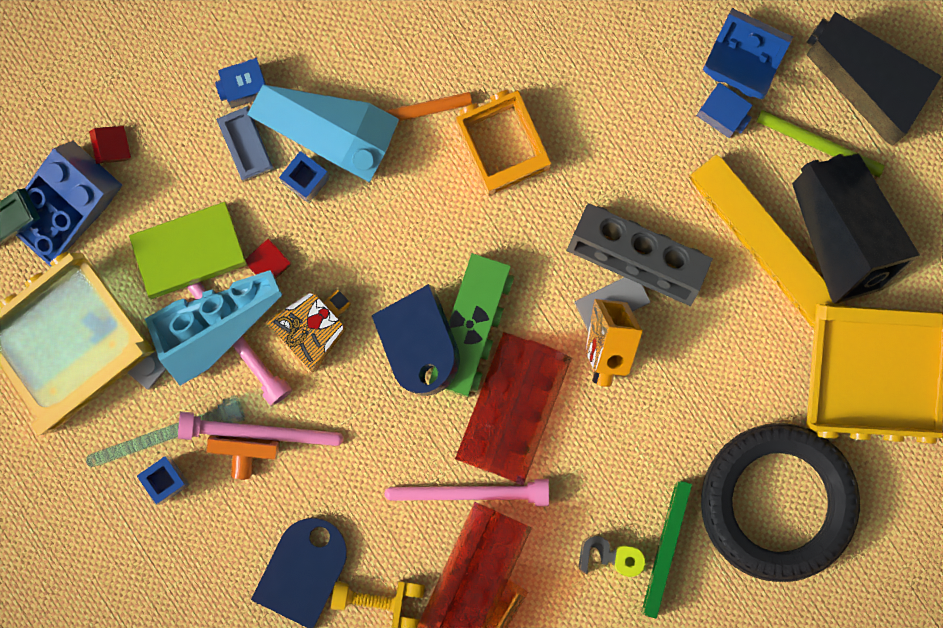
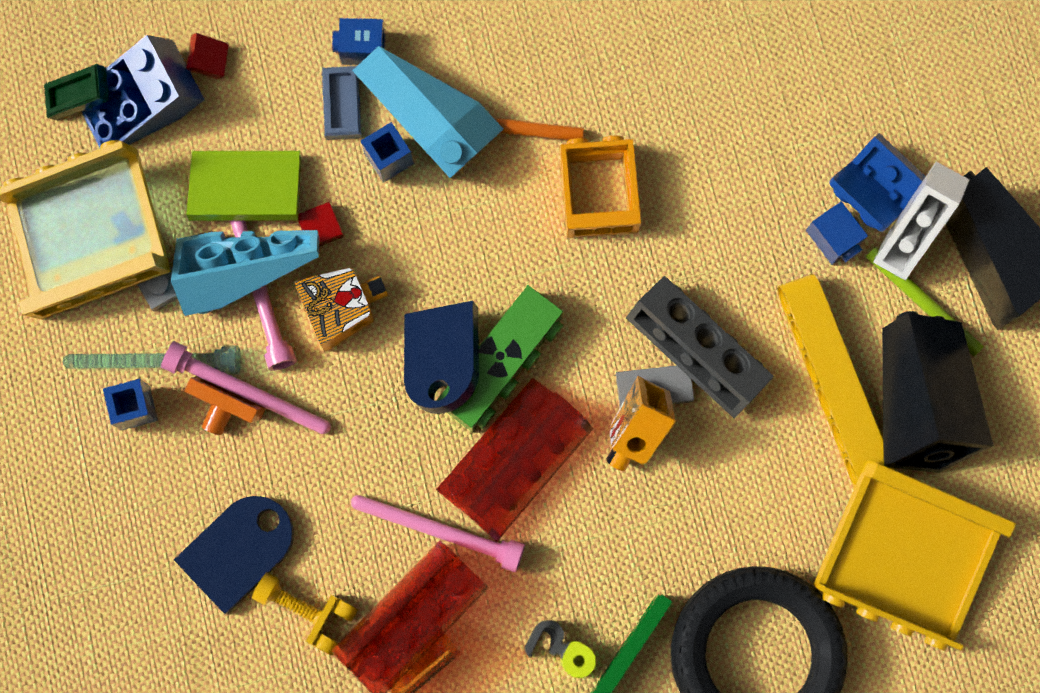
camera: 20 degrees right, 5 degrees down
(794, 78) = (921, 220): none -> white brick

